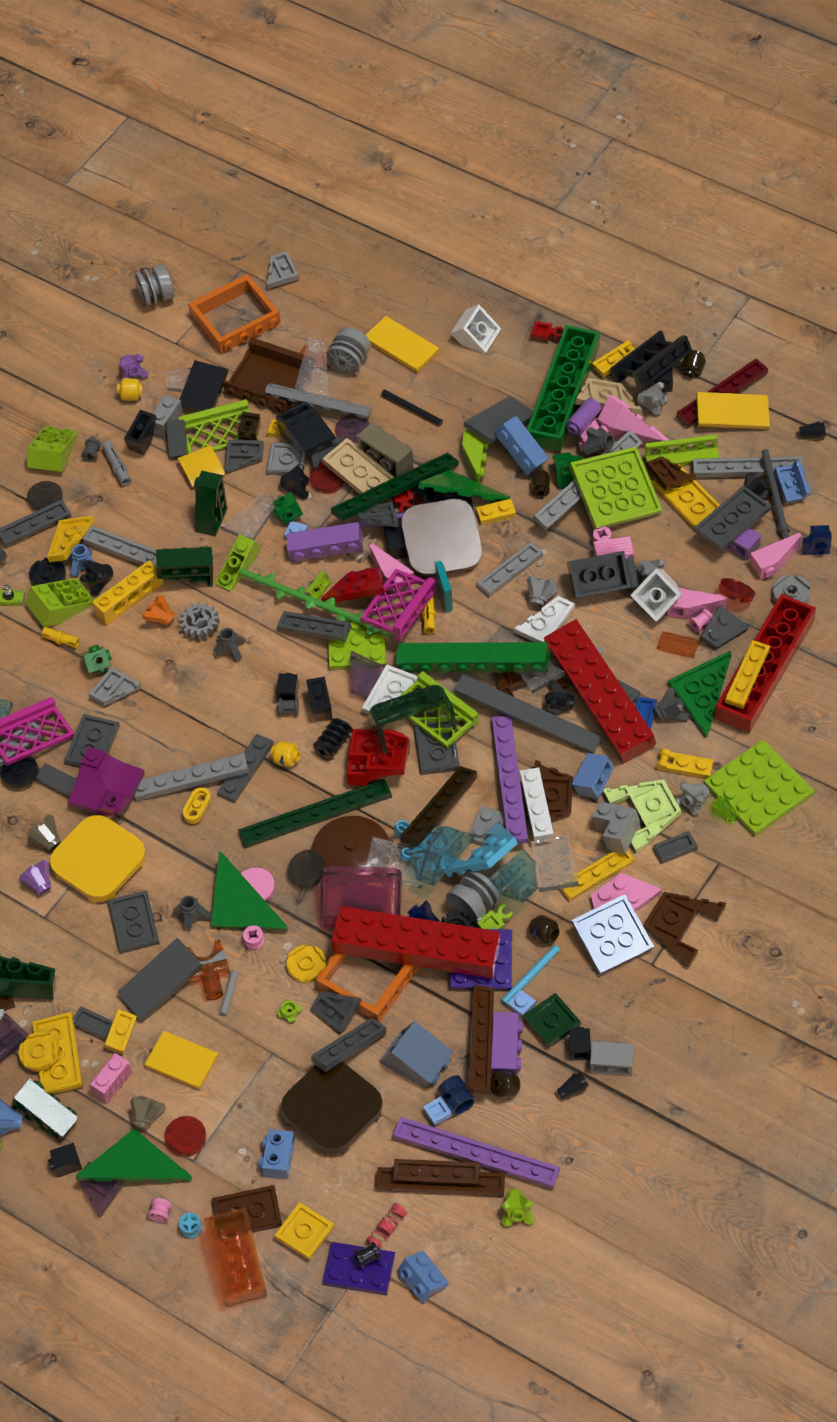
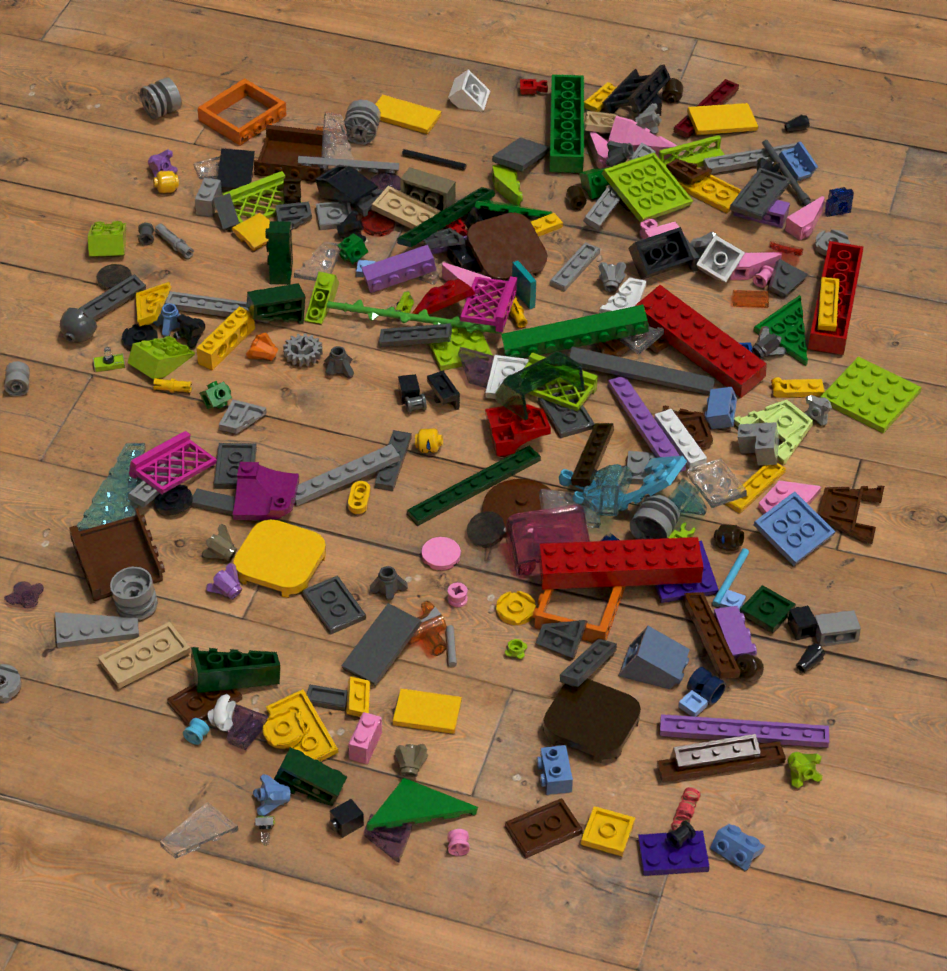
camera: 20 degrees left, 10 degrees down
(141, 432) = (191, 210): black slope -> none
(185, 1136) = (457, 774): clear red tile -> none
(186, 1222) = (493, 843): medium azure wheel -> none
(235, 1257) = (553, 864): clear orange brick -> none
(238, 903) = (432, 568): green tile -> none
(273, 429) = (313, 193): yellow tile -> none
(281, 270) = (273, 74): light grey wing -> none
(332, 738) = (468, 421): black piece -> none
(521, 445) = (550, 168): medium blue brick -> none
(558, 699) = (664, 354): black rock -> none
(583, 416) = (597, 137): medium lavender brick -> none
(675, 847) = (817, 453): dark grey tile -> none
(724, 809) = (848, 414): clear neon green cone -> none

